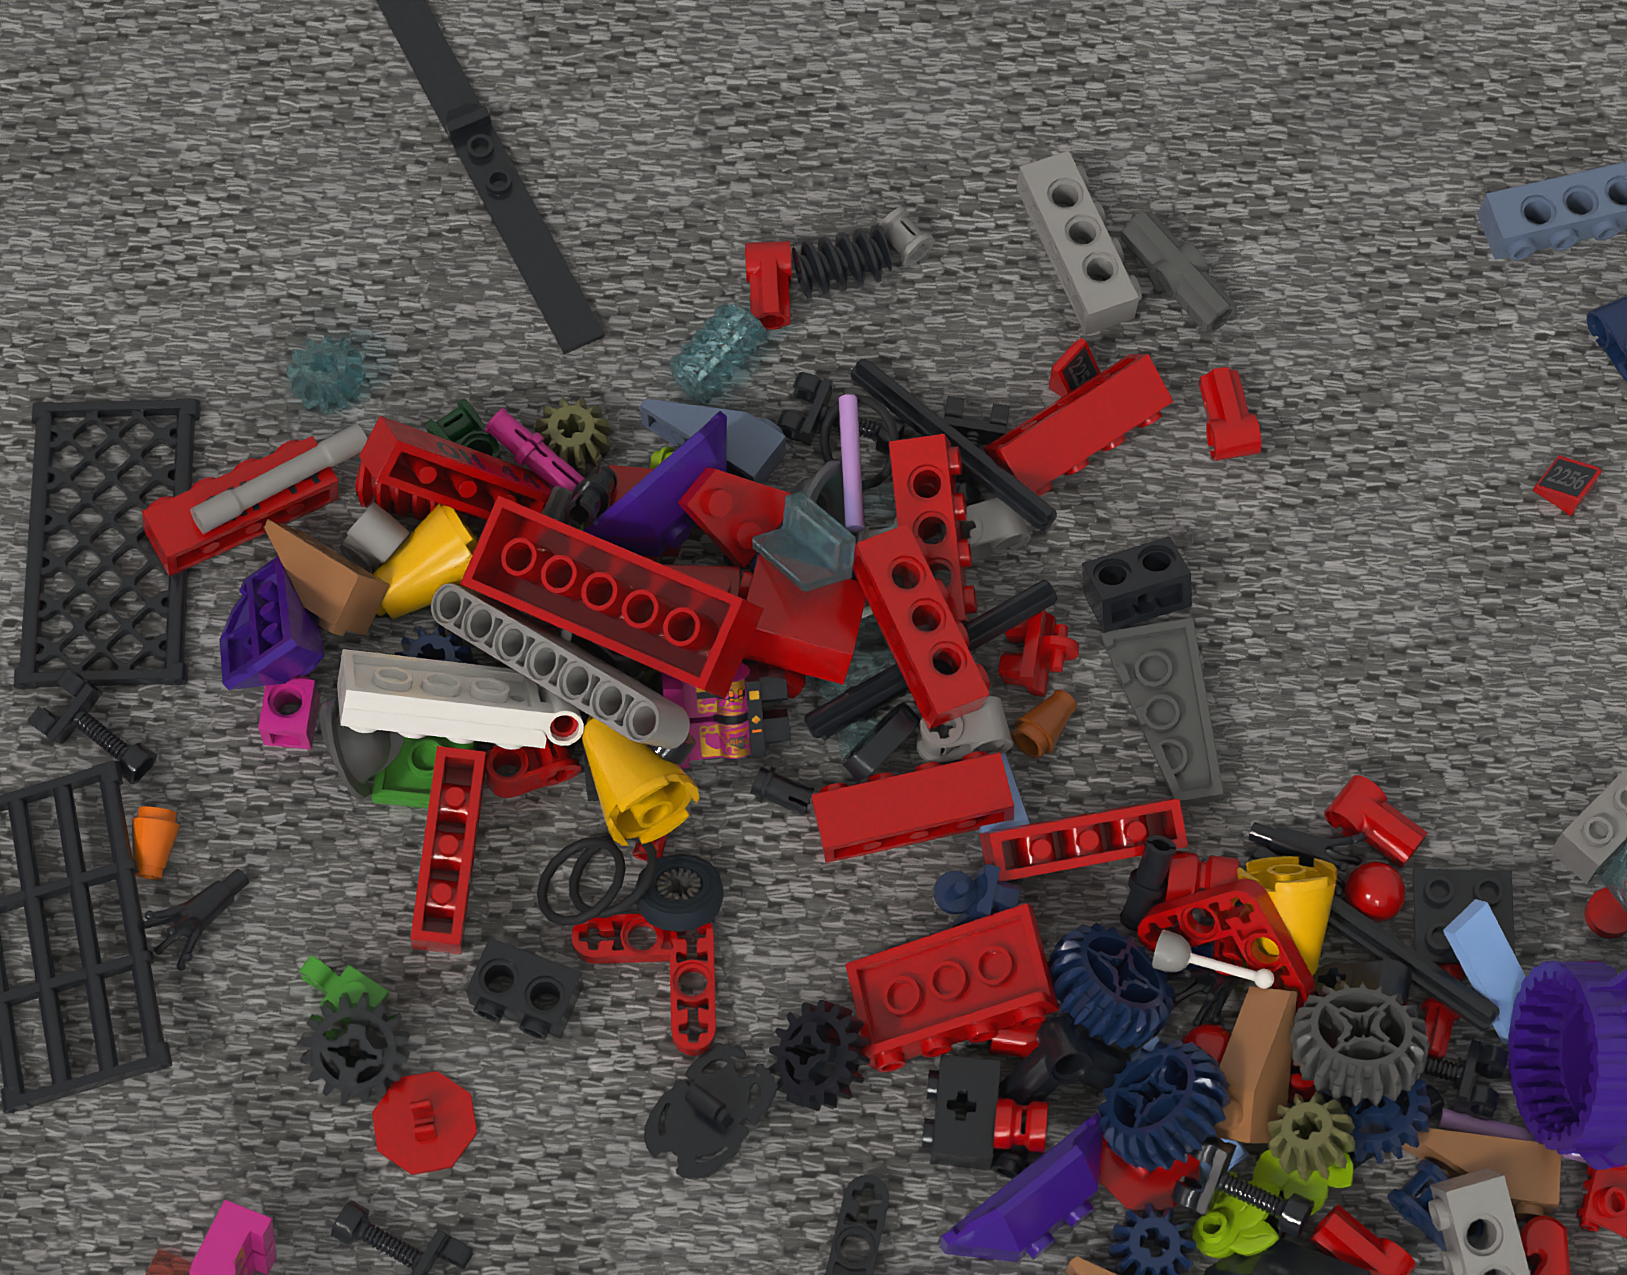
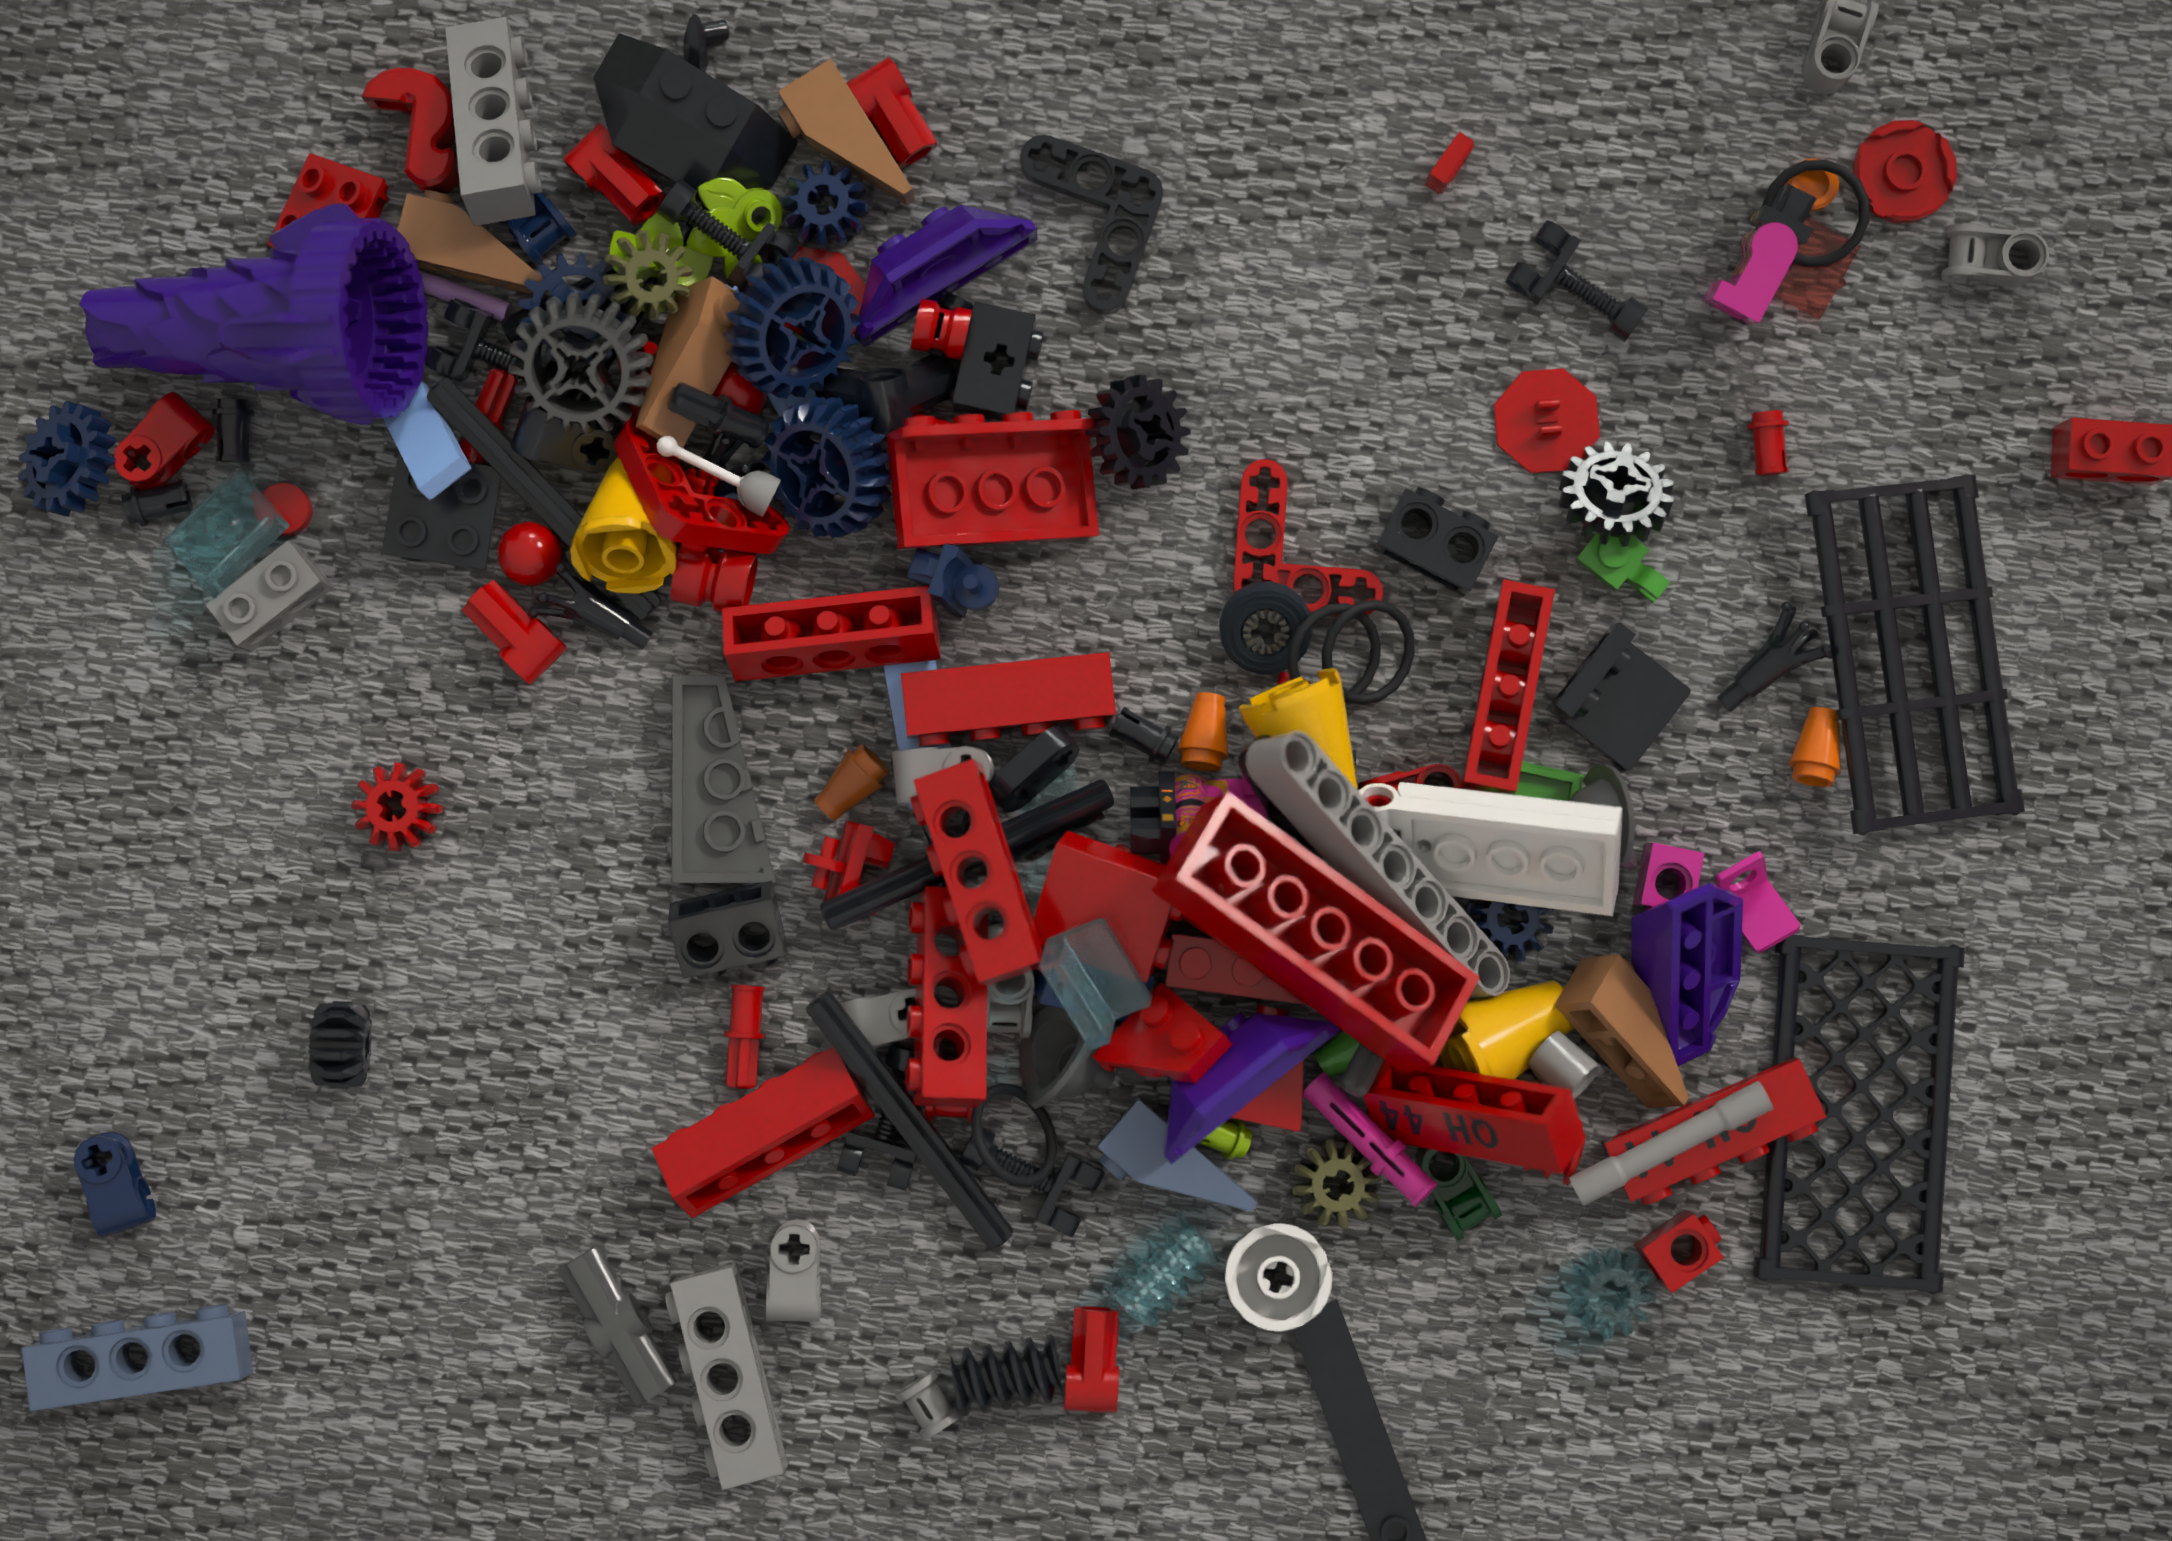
camera: 175 degrees left, 20 degrees up
(134, 759) = (1924, 894): black bar -> none
(204, 696) = (1765, 914): none -> dark pink bracket
(206, 1119) = (1769, 442): none -> red pin
(266, 394) = (1656, 1249): none -> red brick
(343, 867) = (1619, 698): none -> black bracket
(591, 497) = (1326, 1073): black pin -> none
(612, 376) = (1304, 1263): none -> white brick
(708, 1113) = (1257, 393): black shield -> none
(726, 797) = (1205, 734): none -> orange cone
(851, 463) = (1028, 1097): lavender bar -> none
(1033, 322) = (794, 1281): none -> light grey piece
(1073, 368) = (755, 1206): slope -> none
(1107, 507) = (744, 1036): none -> red axle
(1148, 880) = (770, 577): black pin -> none
(1220, 1015) = (718, 414): none -> black axle
(1229, 424) = (590, 1122): red piece -> none
(1455, 678) = (414, 801): none -> red gear
(1458, 457) = (340, 1045): none -> black gear
(1567, 483) = (222, 1011): slope -> none

